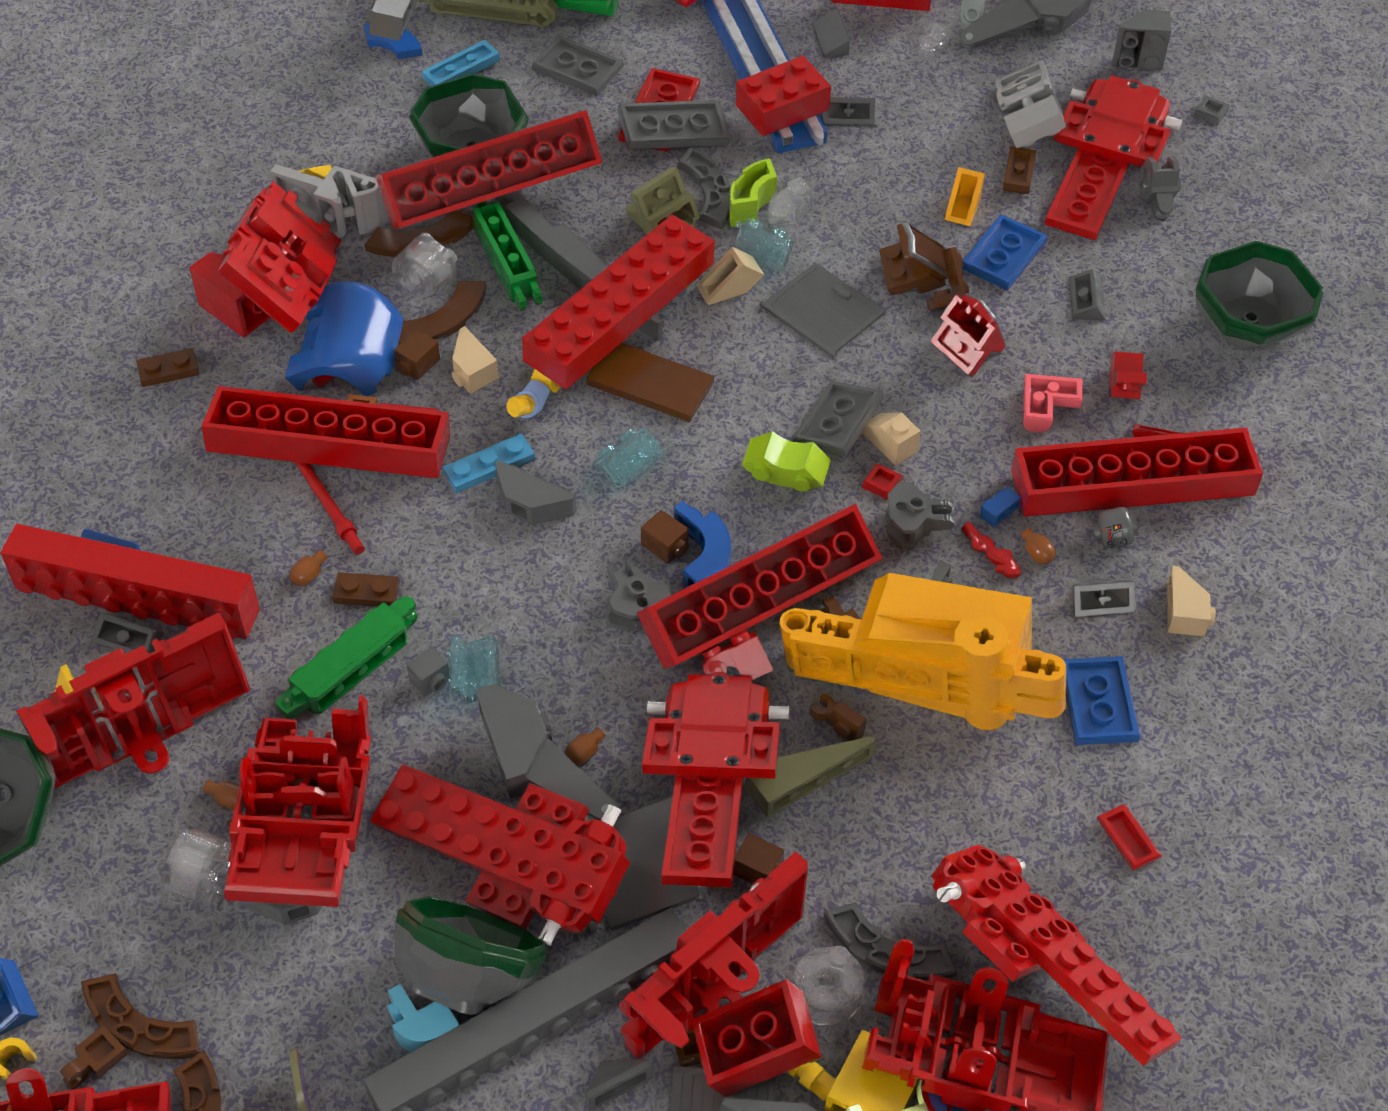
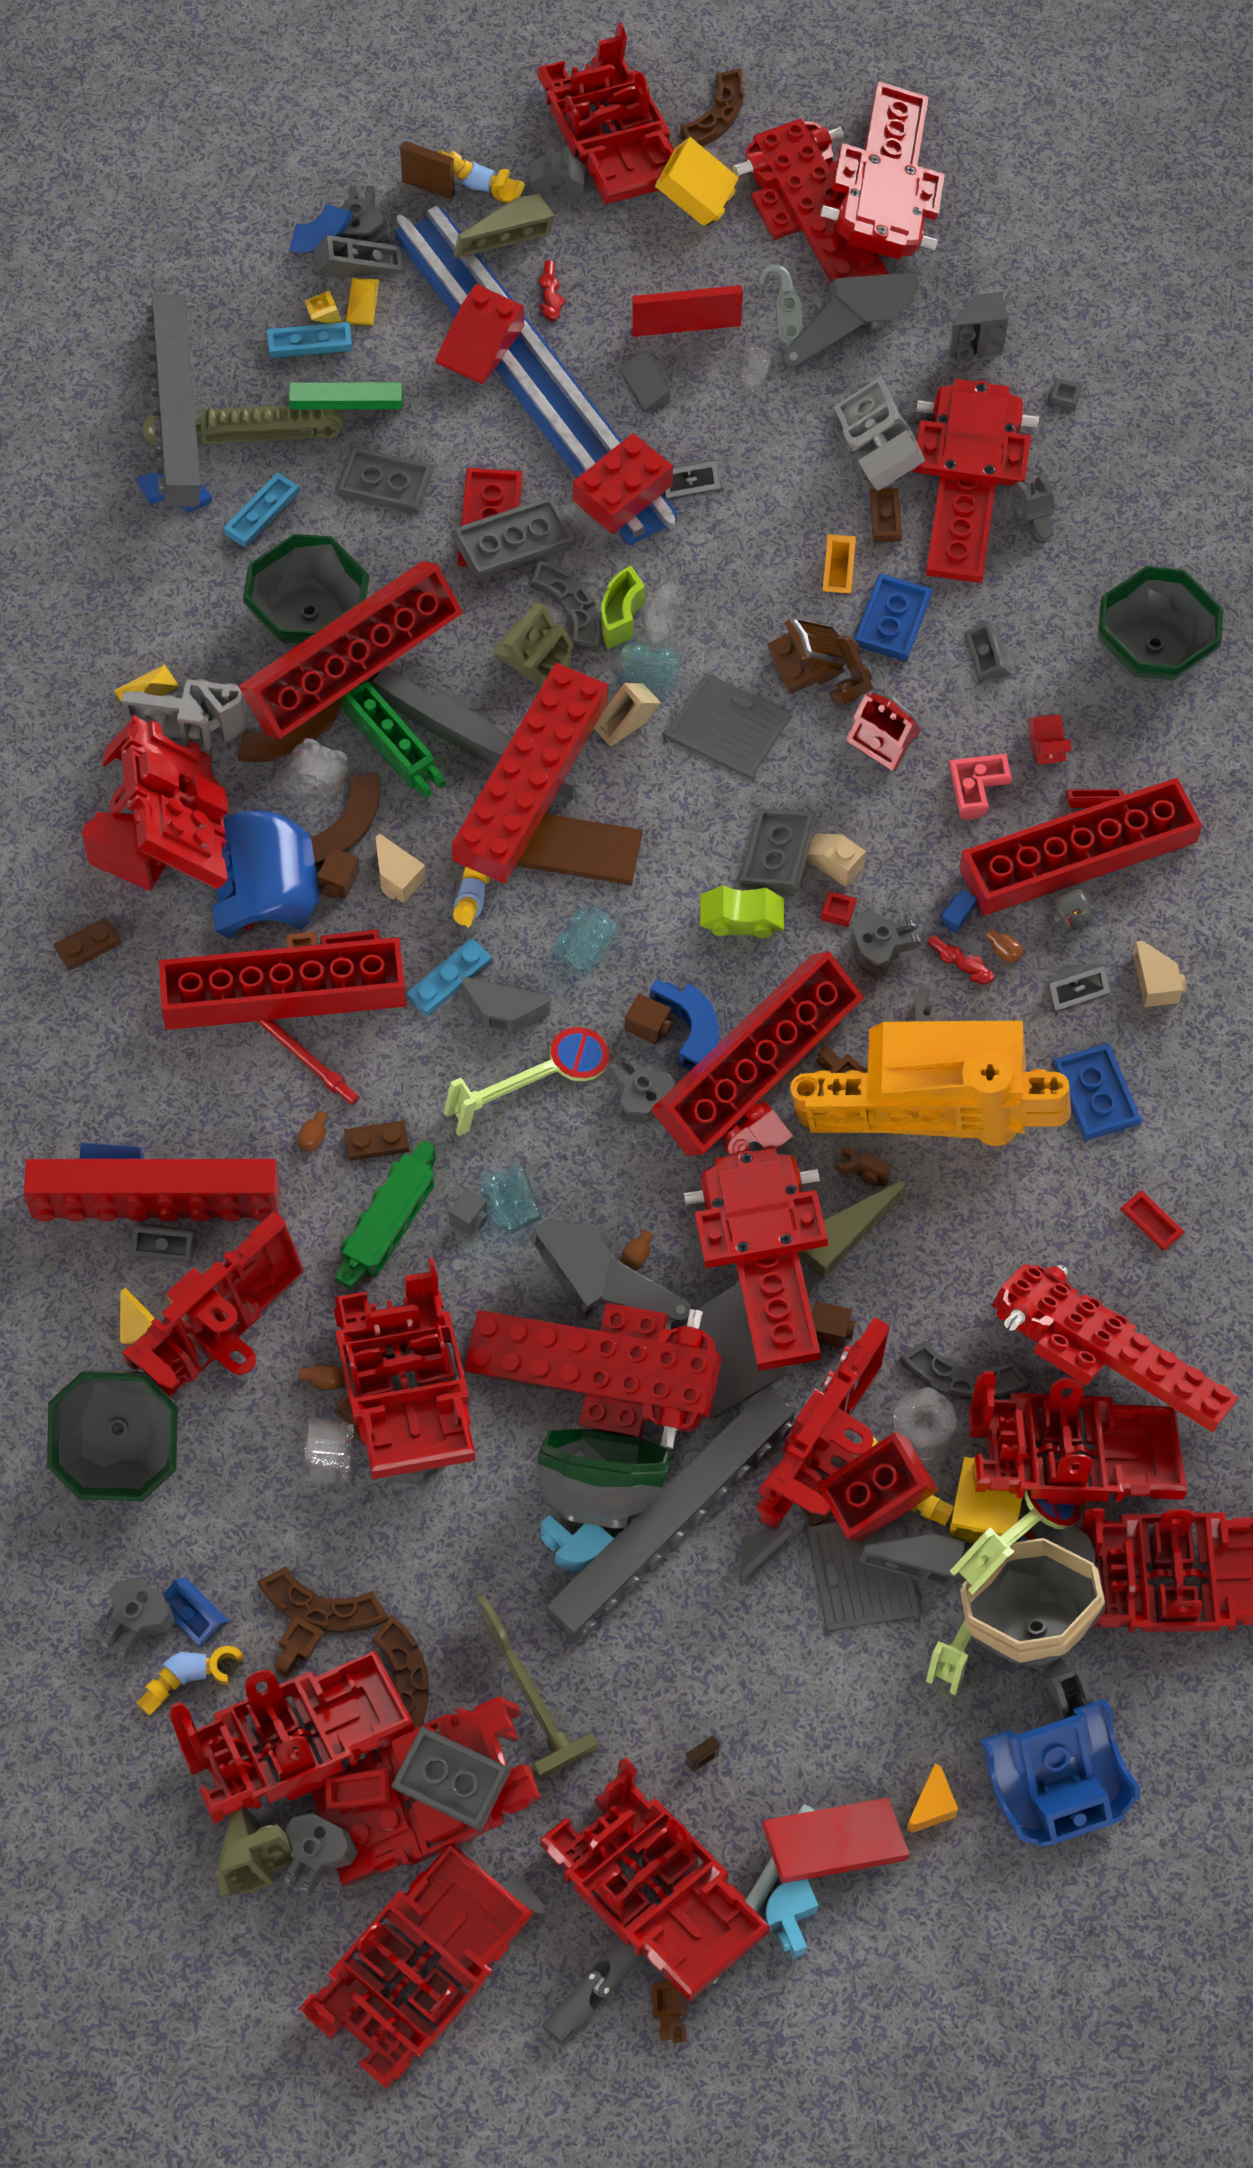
camera: 15 degrees left, 10 degrees up
(582, 554) = (573, 1053): none -> piece

